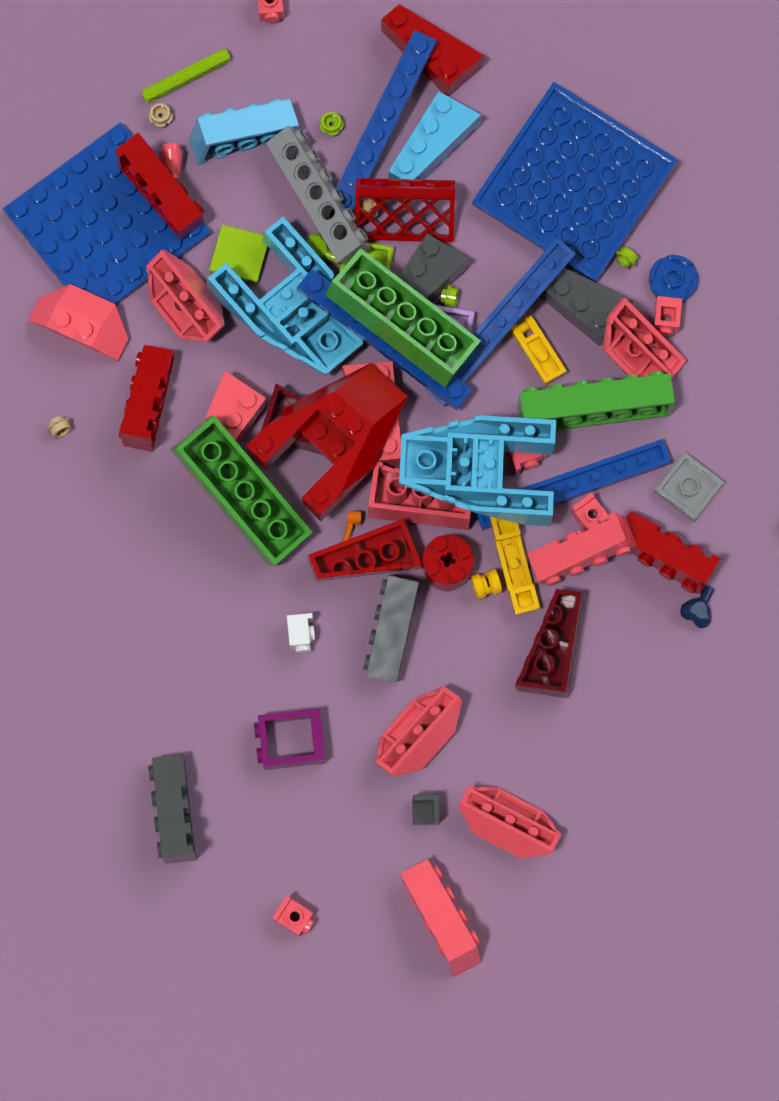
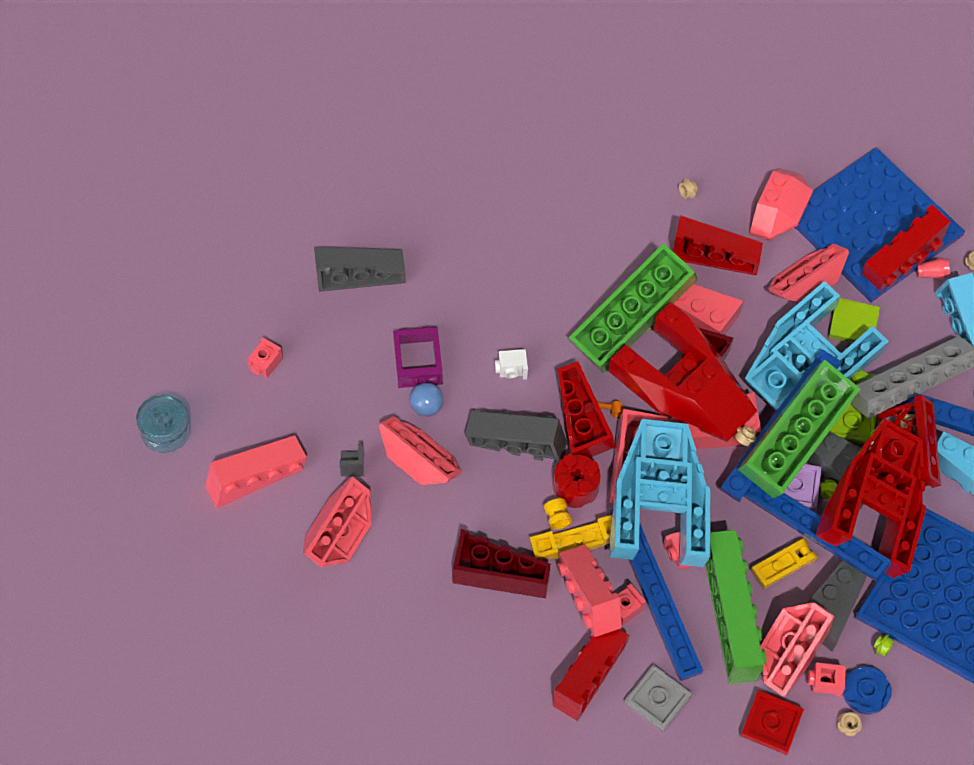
camera: 90 degrees right, 15 degrees down
(343, 729) = (426, 399): none -> medium blue hair
(383, 1011) = (163, 423): none -> clear light blue wheel
(402, 377) = (745, 435): none -> tan plate
(467, 235) = (889, 481): none -> red wedge
(698, 609) = (537, 701): dark blue rock -> none
(713, 374) = (772, 722): none -> red plate
(715, 294) = (849, 718): none -> tan plate

